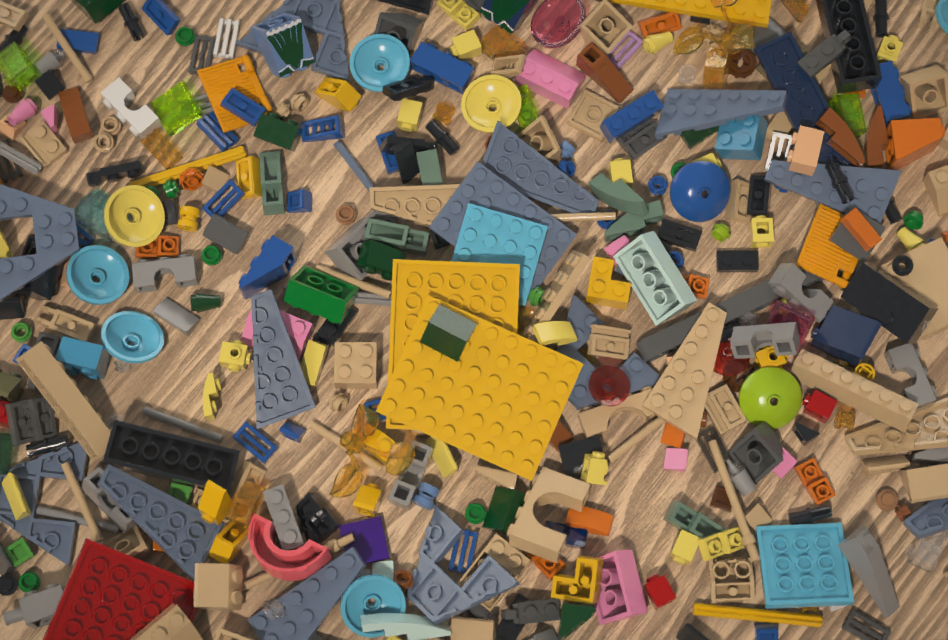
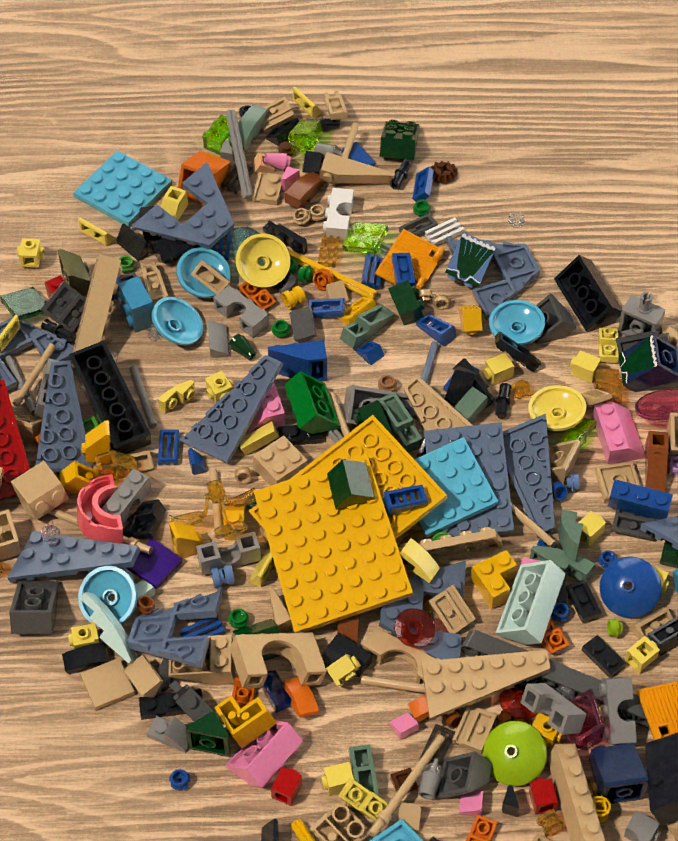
camera: 50 degrees right, 20 degrees down
(86, 69) = (344, 170): none -> tan slope
(110, 272) = (210, 277): none -> tan slope
(442, 67) = (554, 362): blue brick -> none
(487, 315) = (398, 507): none -> blue slope

